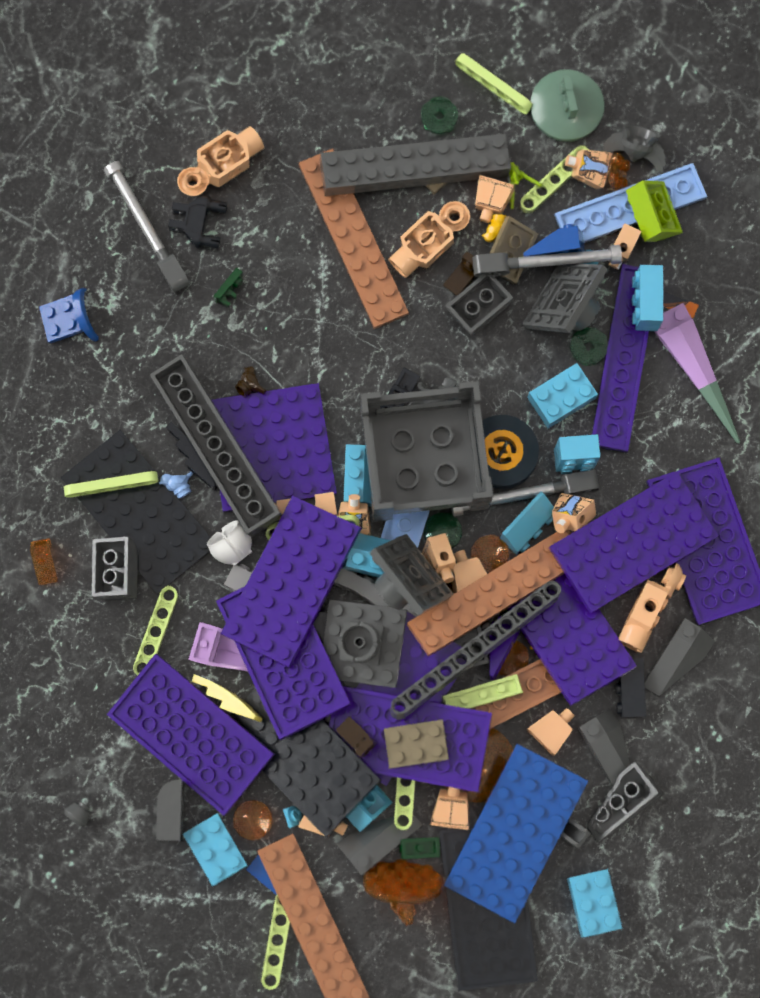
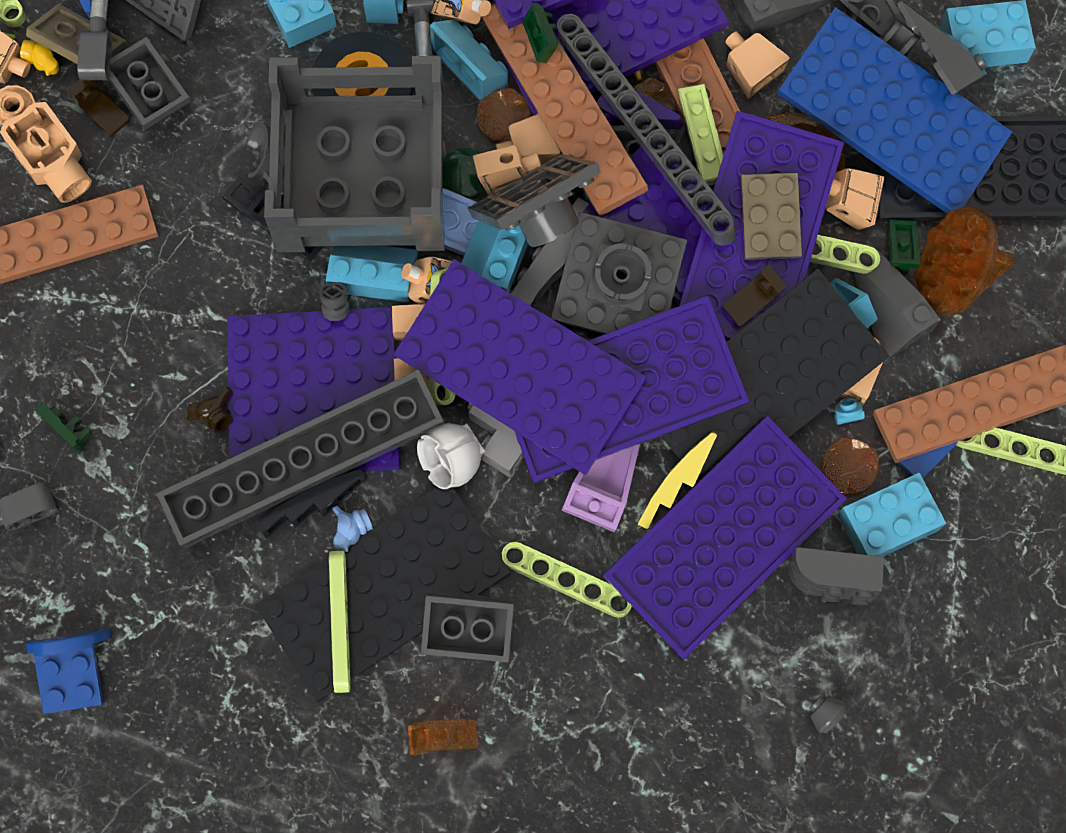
camera: 80 degrees left, 5 degrees down
(332, 452) = (334, 301): none -> dark grey wheel
(543, 569) = (540, 32): none -> dark green plate
(562, 871) = (955, 62): none -> dark grey wedge

